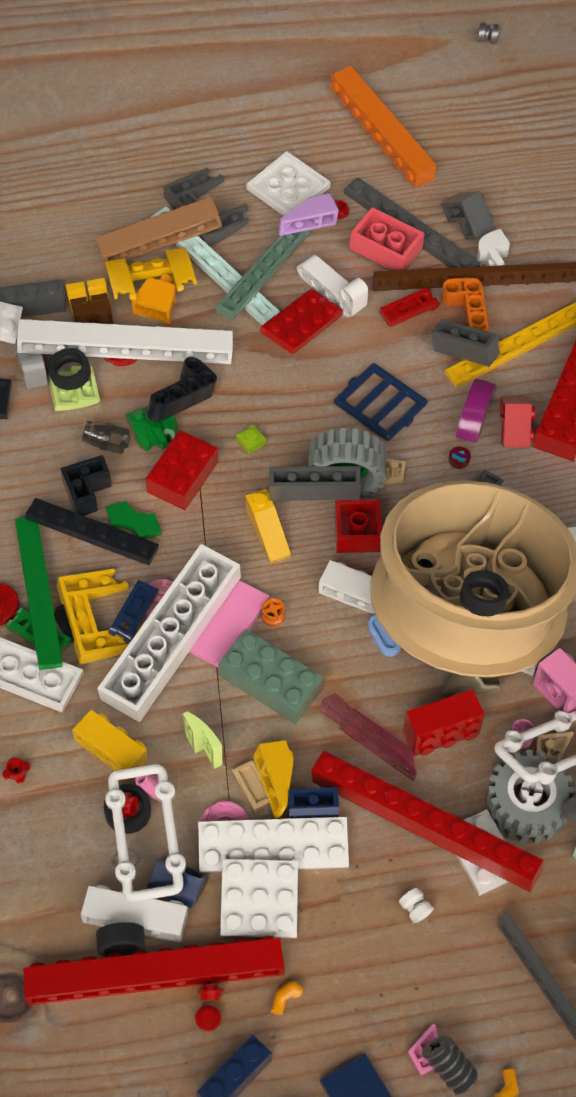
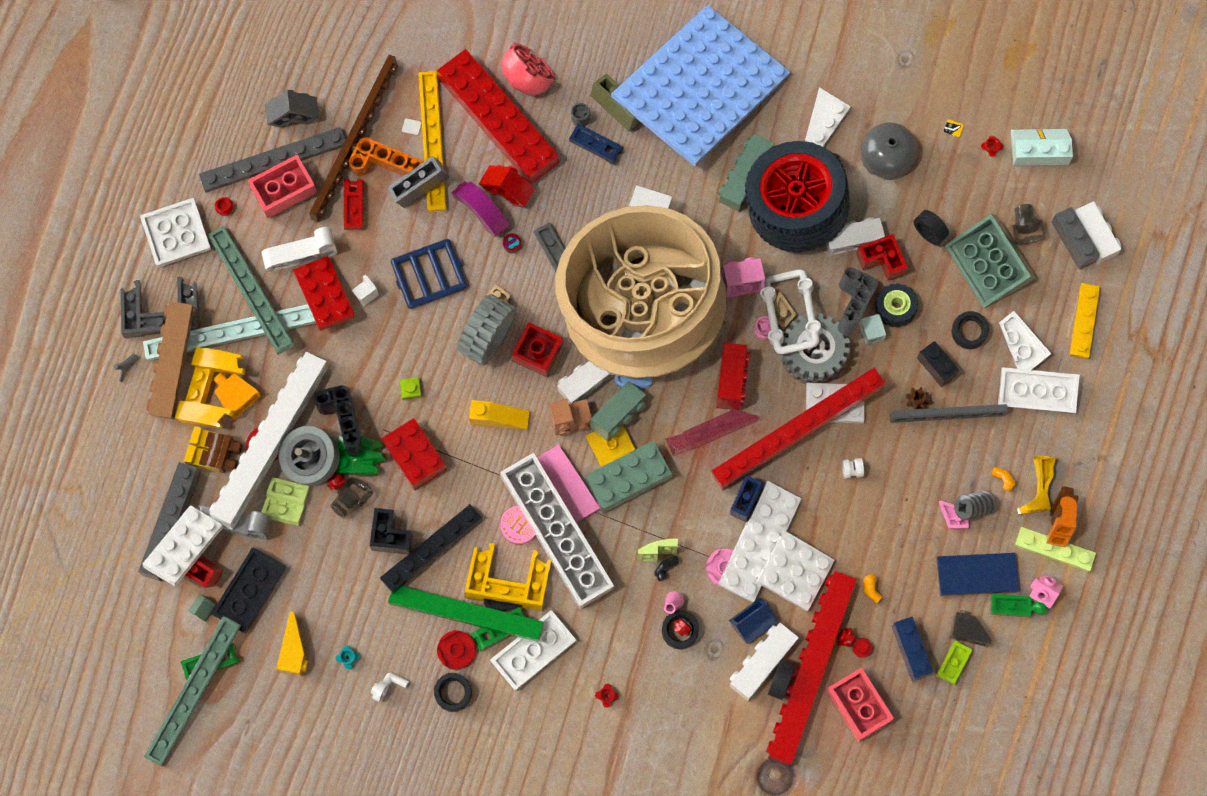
camera: 60 degrees left, 15 degrees up
(67, 356) = (272, 510): black tyre -> none
(109, 742) = (622, 617): yellow brick -> none
(116, 418) = (336, 481): none -> red plate
(127, 381) = (309, 455): none -> wheel
(133, 610) = (523, 549): dark blue plate -> none
(134, 1044) = (859, 704): none -> coral brick
(135, 206) = (125, 365): none -> dark grey bar
(141, 524) = (428, 518): green tile -> none
(175, 862) = (680, 633): white bar -> none
(190, 759) = (663, 566): none -> black arm
(251, 785) = (705, 532): tan tile -> none
(275, 607) = (574, 444): orange wheel -> none
(275, 767) = (706, 511): yellow slope -> none
(302, 588) = (569, 416): none -> nougat brick
(302, 642) = (612, 449): none -> yellow plate
(311, 214) = (223, 226): lavender slope -> none
(314, 483) = (493, 362): dark grey brick -> none
(326, 357) = (365, 291): none -> white panel
(337, 631) = (618, 411): none -> sand green brick
(383, 126) = (156, 125): orange brick -> none
(481, 606) = (681, 282): black tyre -> none
(493, 248) = (333, 112): white brick -> none
(521, 320) = (411, 126): none -> white sticker
(542, 931) = (919, 394): none -> reddish brown gear

